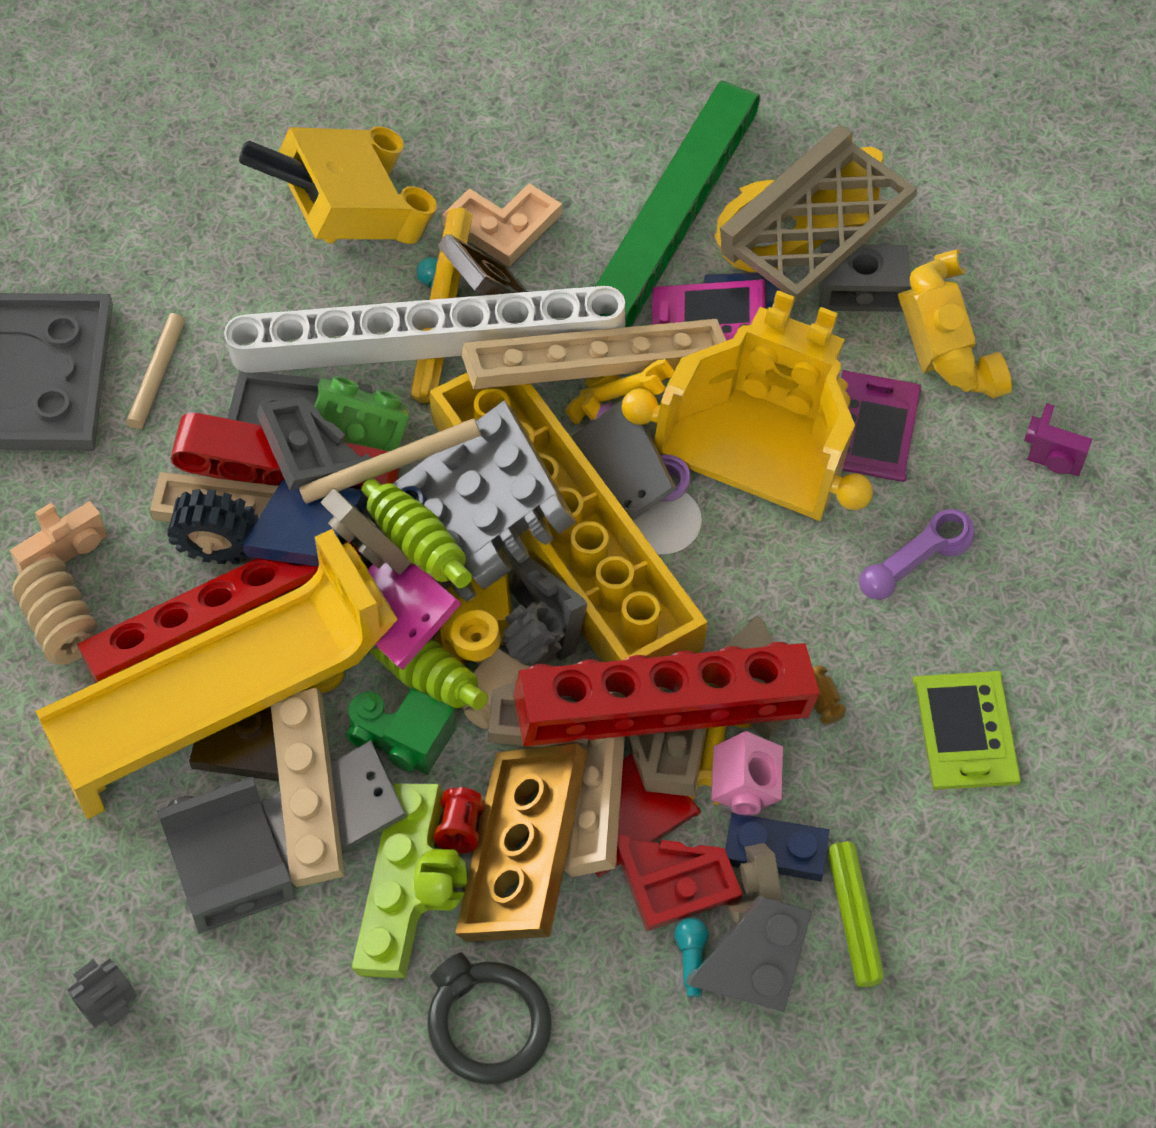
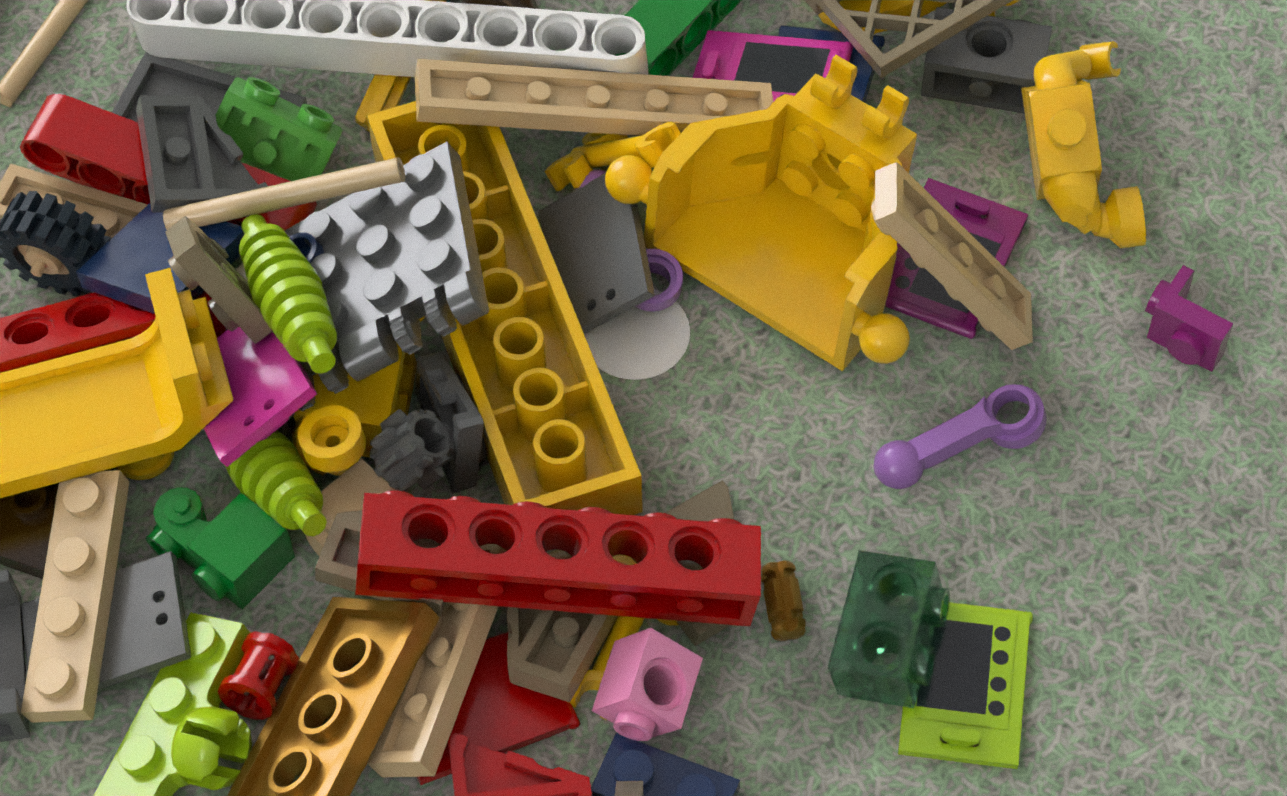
camera: 15 degrees right, 0 degrees up
(889, 423) = (952, 255): none -> tan plate
(902, 701) = (875, 628): none -> clear green brick

